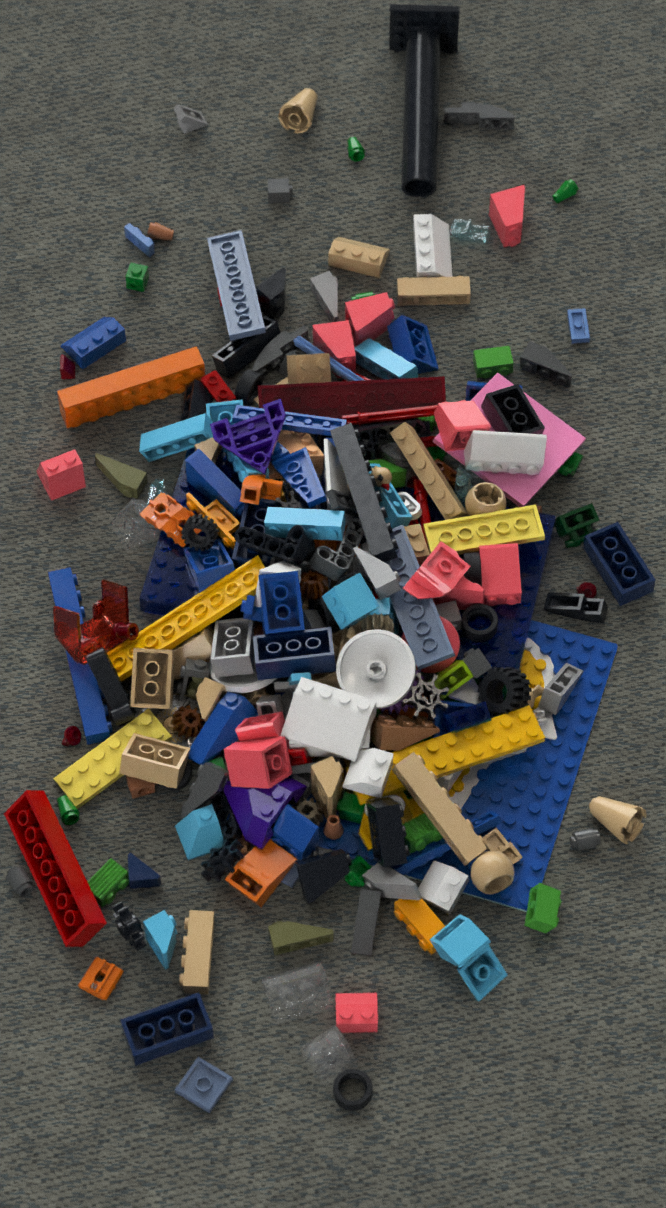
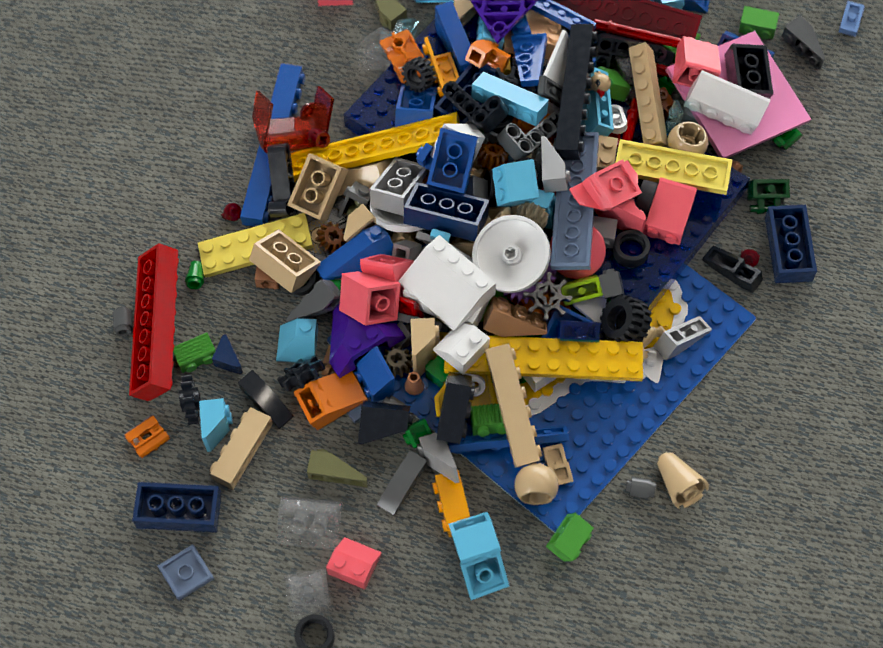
camera: 25 degrees right, 5 degrees up
(197, 897) = (265, 399): none -> black slope
(220, 811) = (322, 344): black beam -> none
(443, 886) = (486, 479): white slope -> none

